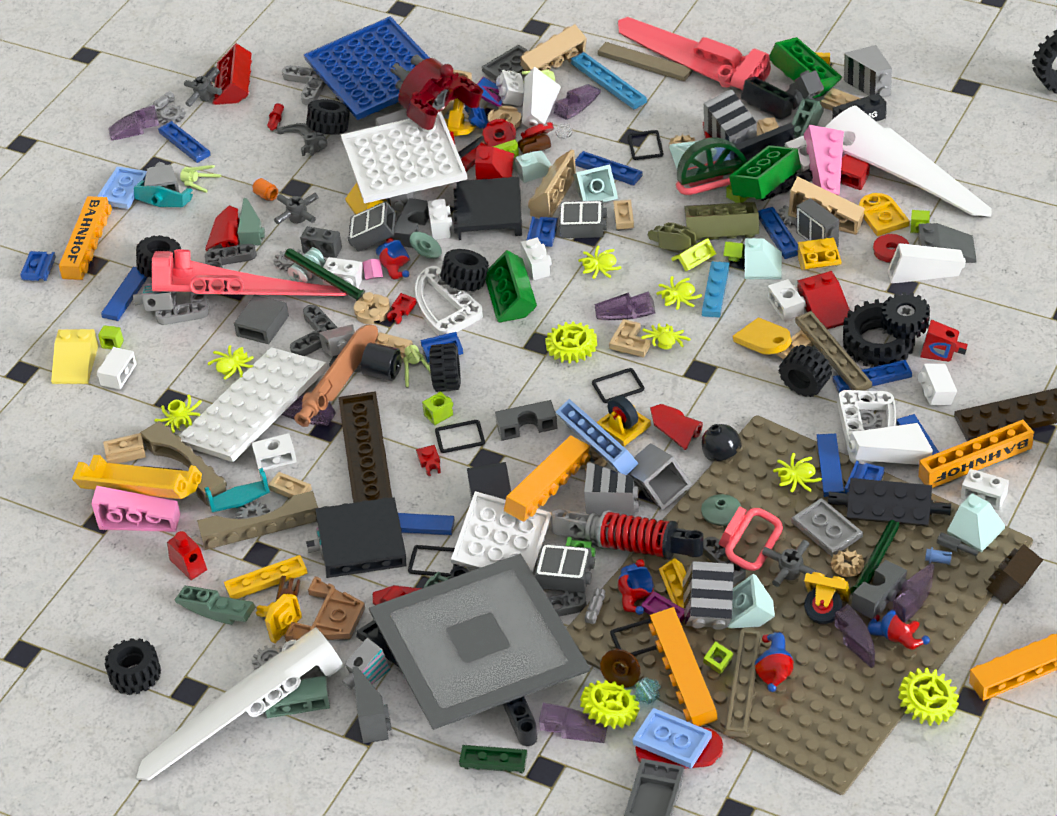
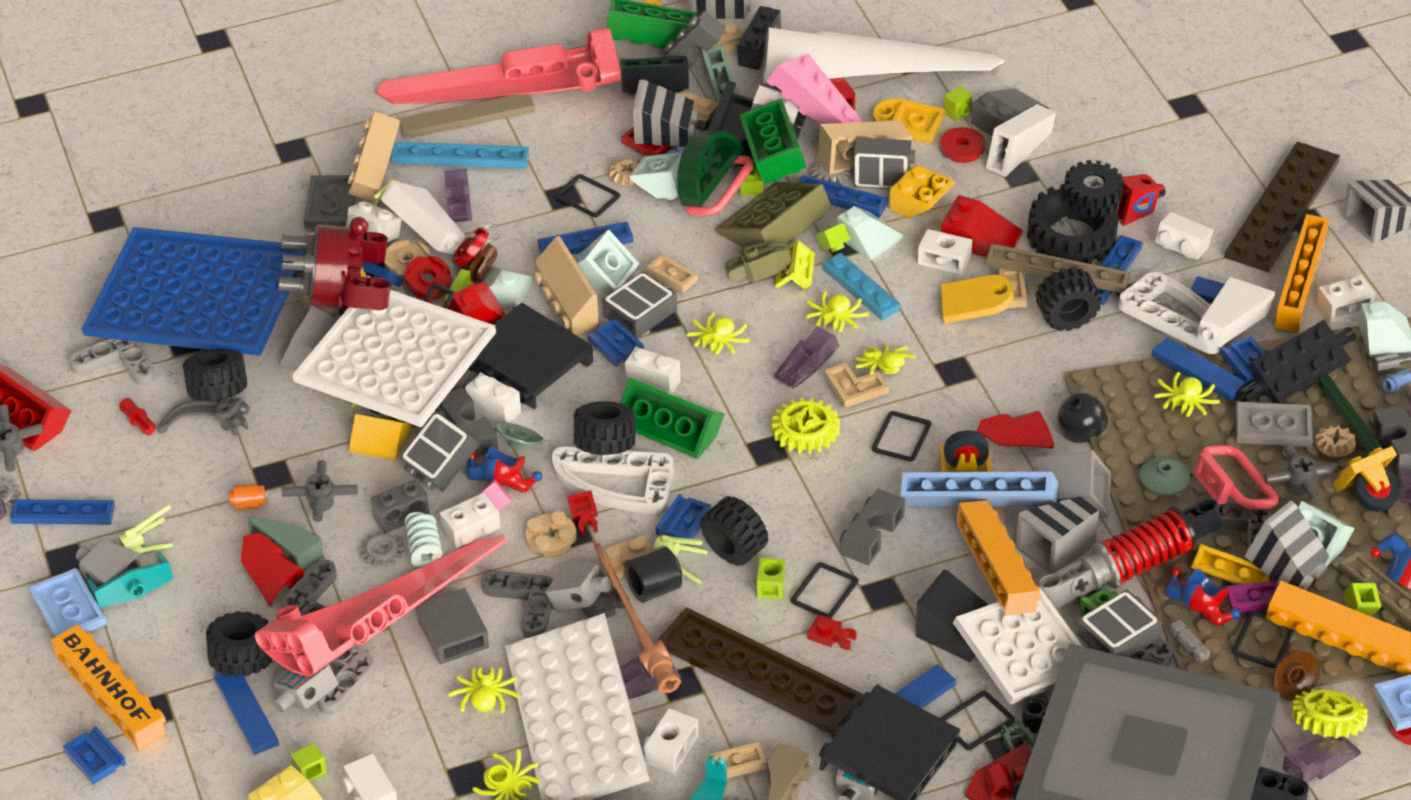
camera: 50 degrees left, 0 degrees up
(324, 274) = (465, 531): dark green axle -> none
(647, 690) = (1342, 675): clear light blue gear -> none

